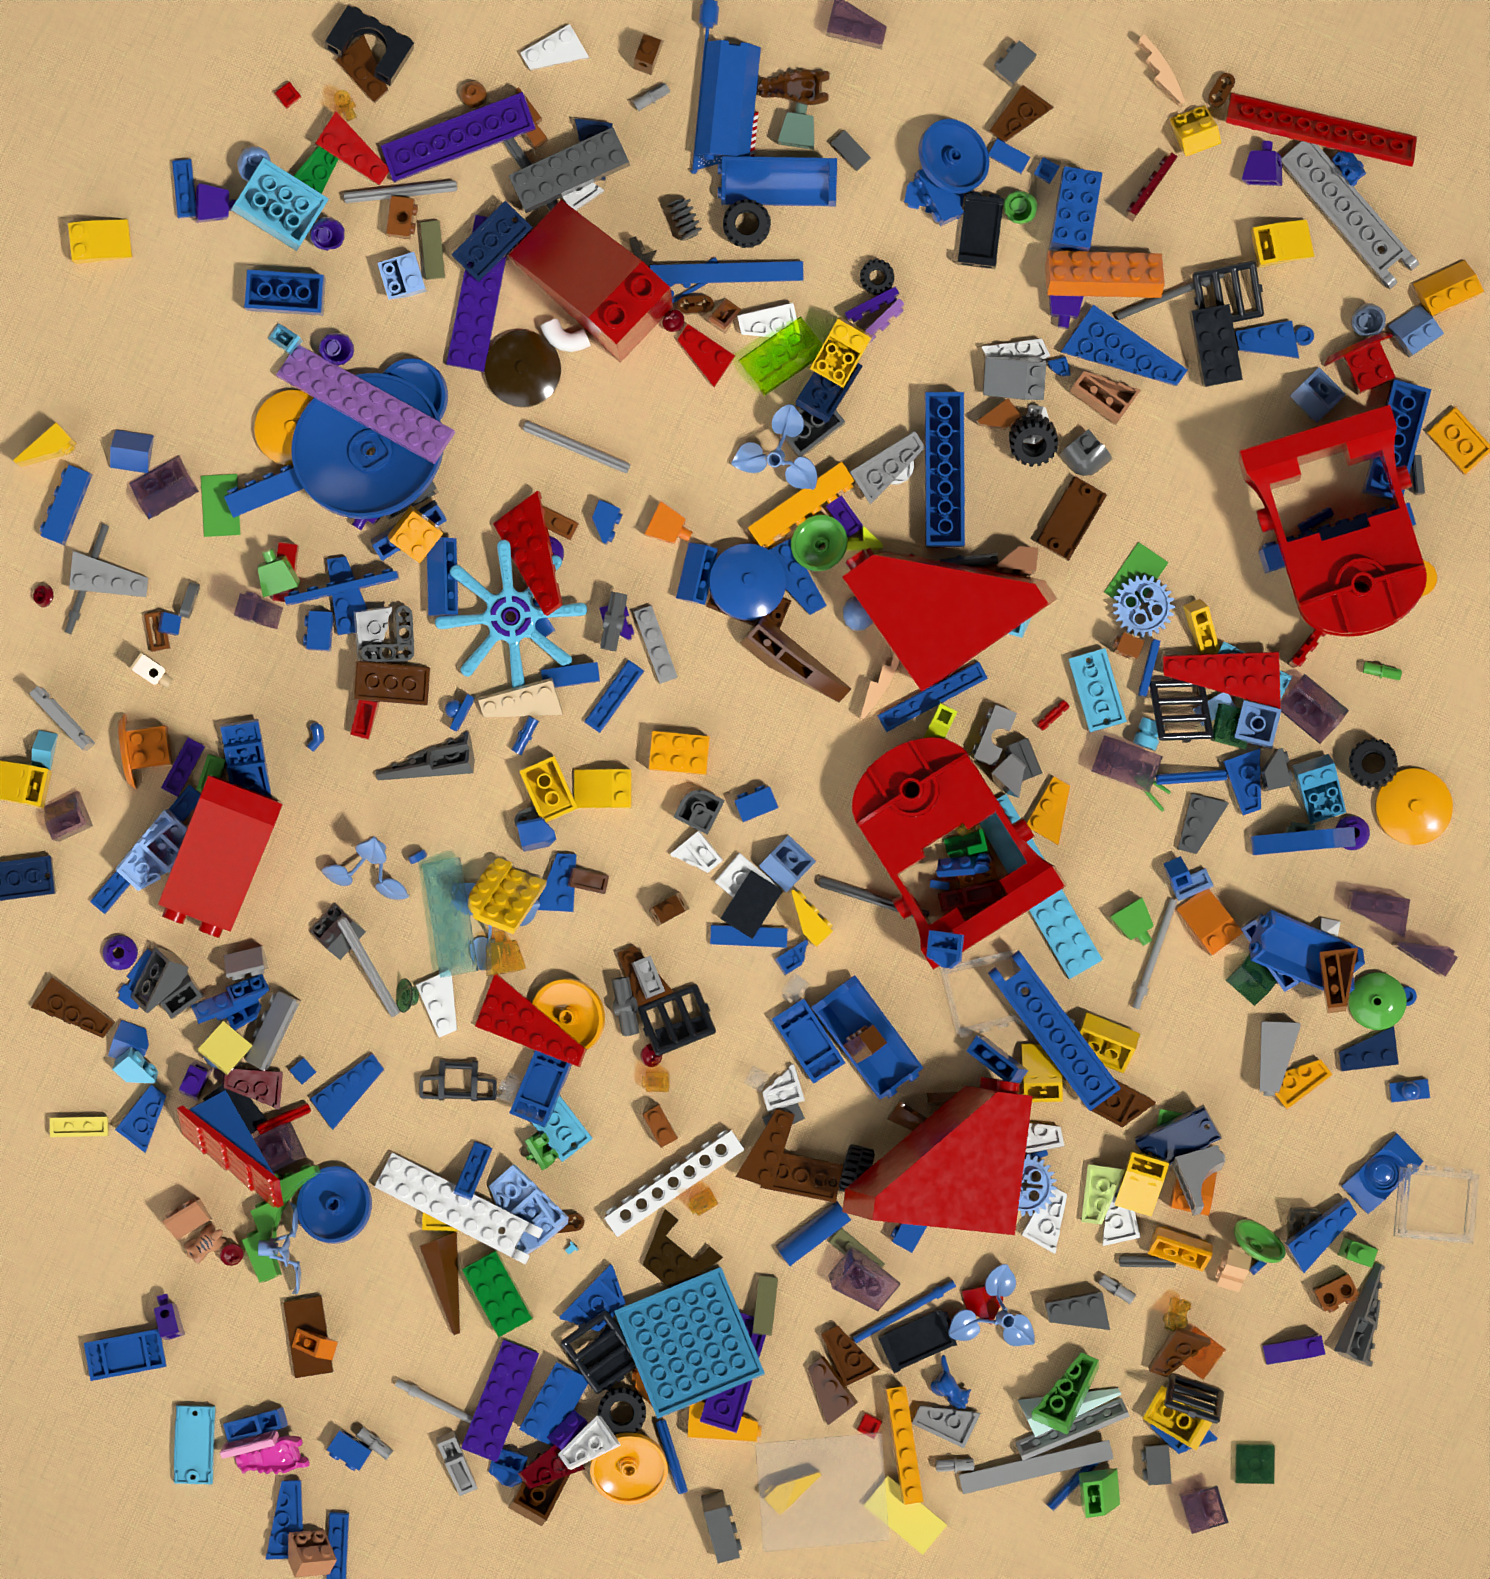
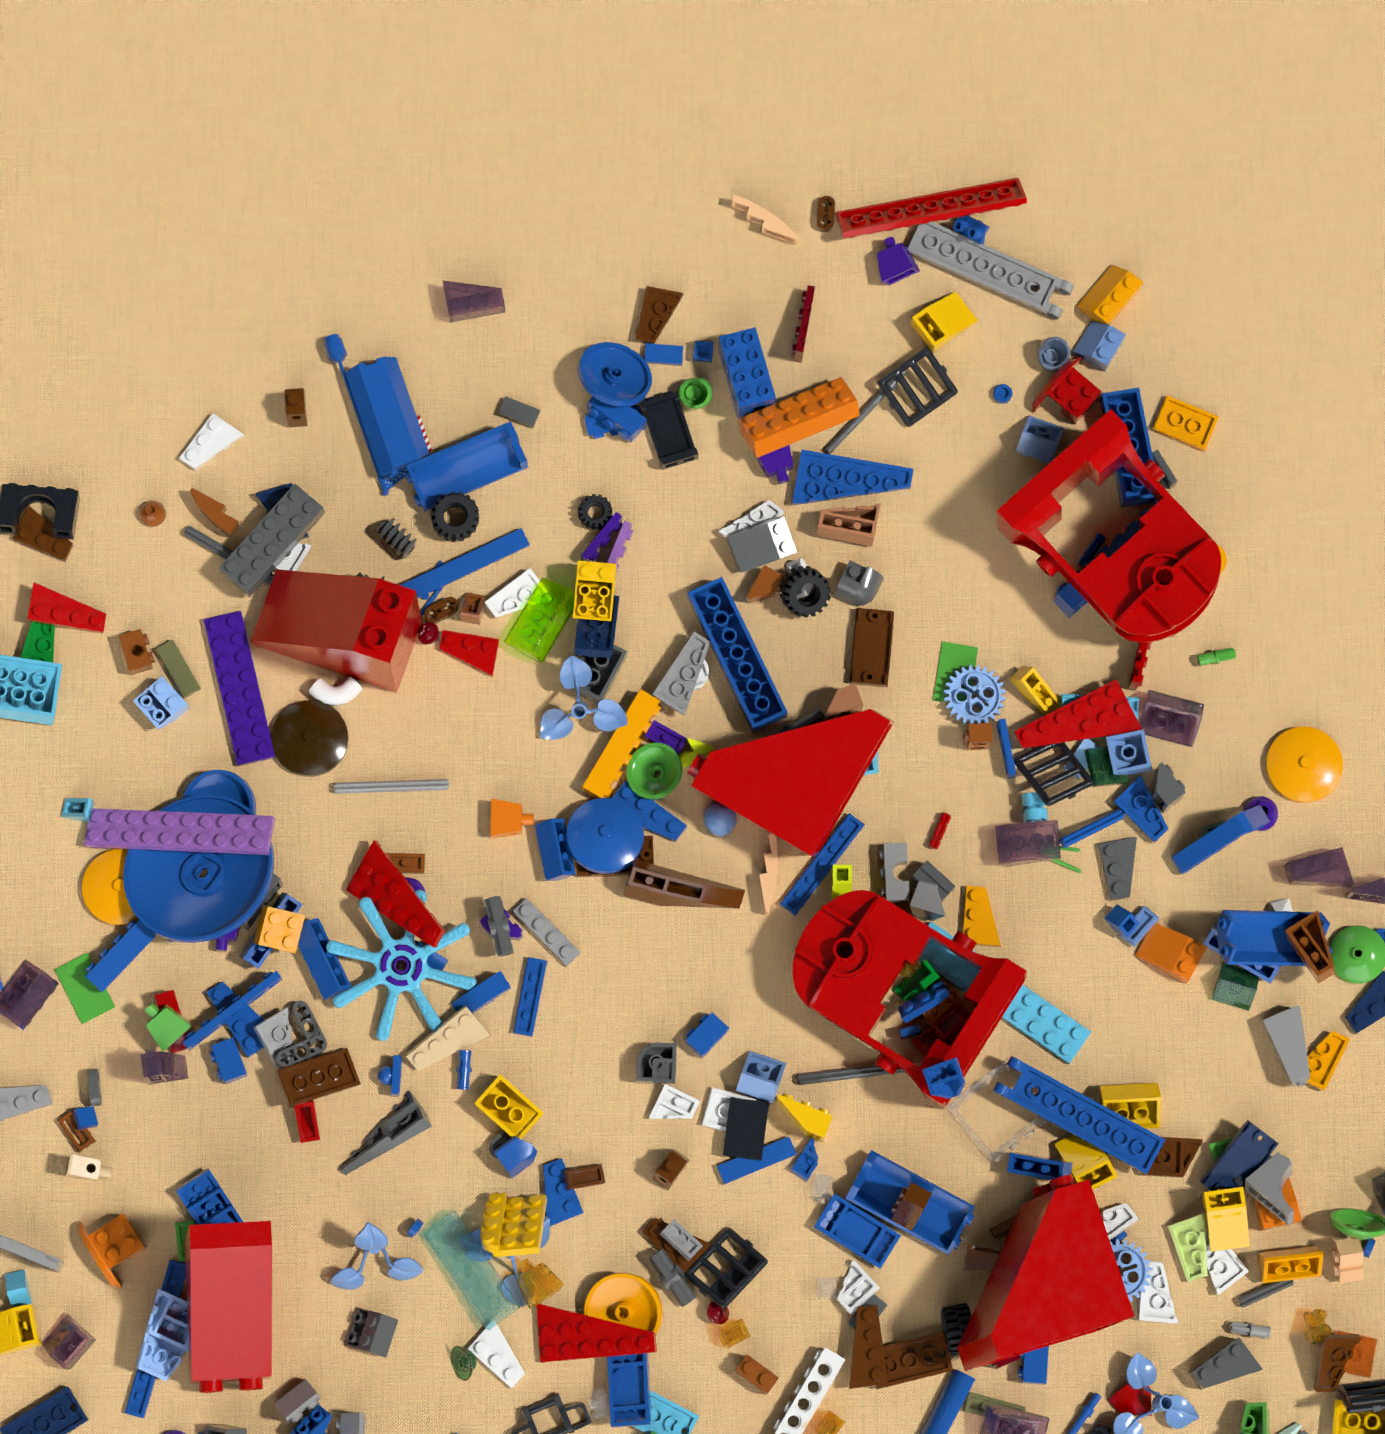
camera: 30 degrees left, 10 degrees down
(183, 767) = (157, 1245): dark purple plate -> none
(285, 292) = (59, 766): blue brick -> none
(318, 736) = (271, 1159): blue arm -> none
(327, 233) = (75, 695): dark purple hair -> none
(336, 348) = (129, 795): dark purple hair -> none
(345, 104) = (39, 573): clear yellow hips -> none
(368, 966) = (415, 1350): light grey axle -> none
(401, 191) = (130, 626): light grey axle -> none
(458, 137) = (156, 556): dark purple plate -> none
(491, 241) = (229, 635): dark blue piece -> none
(603, 788) = (559, 1085): yellow slope -> none
(605, 518) = (447, 839): blue slope -> none
(651, 96) = (316, 444): light grey axle -> none
(679, 753) = (614, 1020): light orange brick -> none
(798, 129) = (463, 413): sand green torso -> none
(799, 86) = (445, 376): reddish brown animal -> none
(1015, 63) = (630, 271): dark grey brick -> none
(1059, 366) = (797, 518): blue tile -> none
(1097, 690) = (969, 790): medium azure piece -> none
(1134, 921) = (1103, 983): bright green torso -> none
(1142, 988) = (1140, 1041): light grey bar -> none
(1195, 130) = (820, 258): yellow slope -> none
(1215, 345) = (928, 435): black brick -> none
(1269, 339) = (974, 410): blue wing -> none
(1319, 788) = (1212, 786): dark azure slope -> none
(1368, 747) = (1248, 725): black tyre -> none

